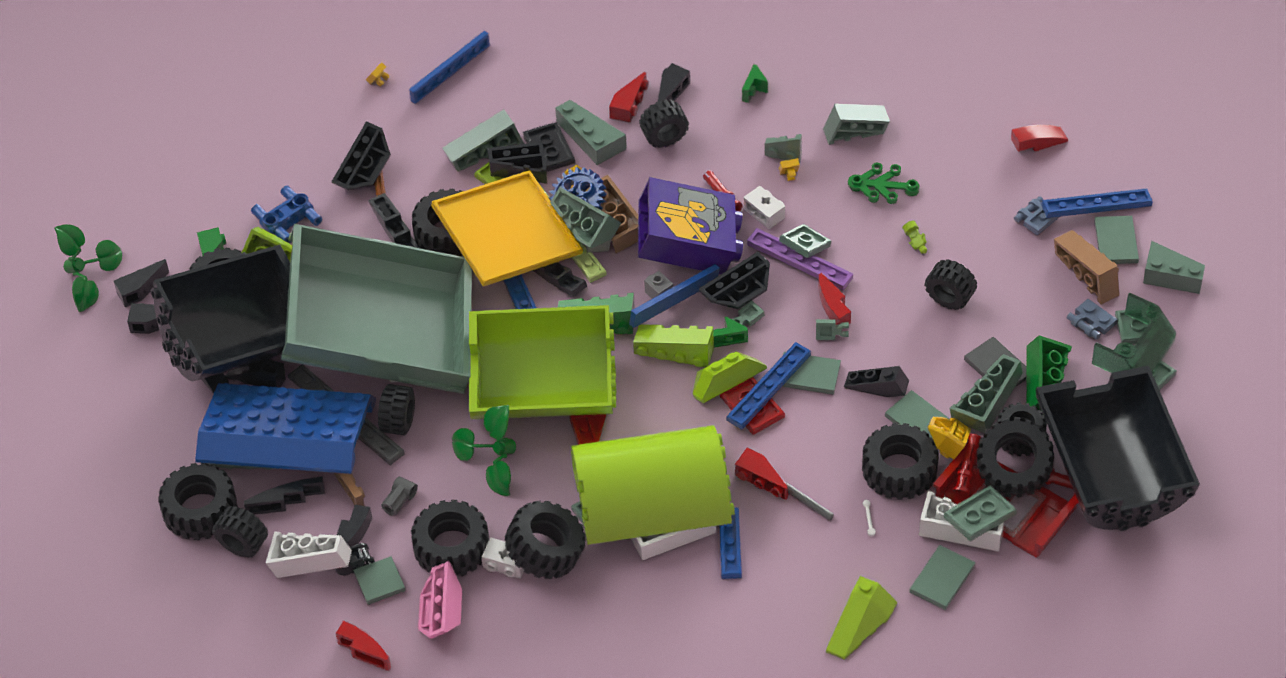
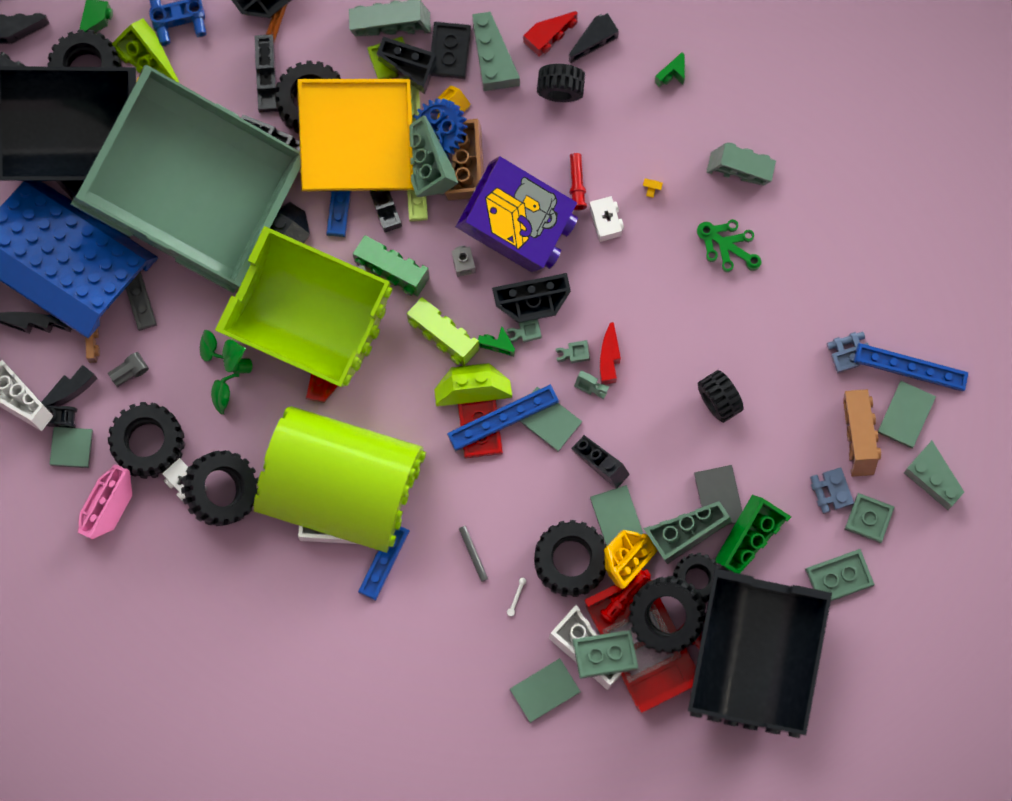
camera: 25 degrees right, 25 degrees up
(362, 645) = (24, 508): red slope -> none
(396, 409) = (164, 284): black tyre -> none
(672, 296) = (468, 281): blue tile -> none
(758, 471) = (444, 499): red slope -> none
(784, 148) = (655, 159): sand green wing -> none
(801, 312) = (577, 352): none -> sand green plate
(805, 240) = (621, 276): sand green tile -> none
(813, 265) = (606, 292): medium lavender plate -> none
(863, 613) = (454, 695): lime wedge -> none
(917, 240) = (724, 324): lime piece -> none
(1037, 137) = (902, 264): red slope -> none
(1150, 347) = (843, 566): clear green windscreen -> none

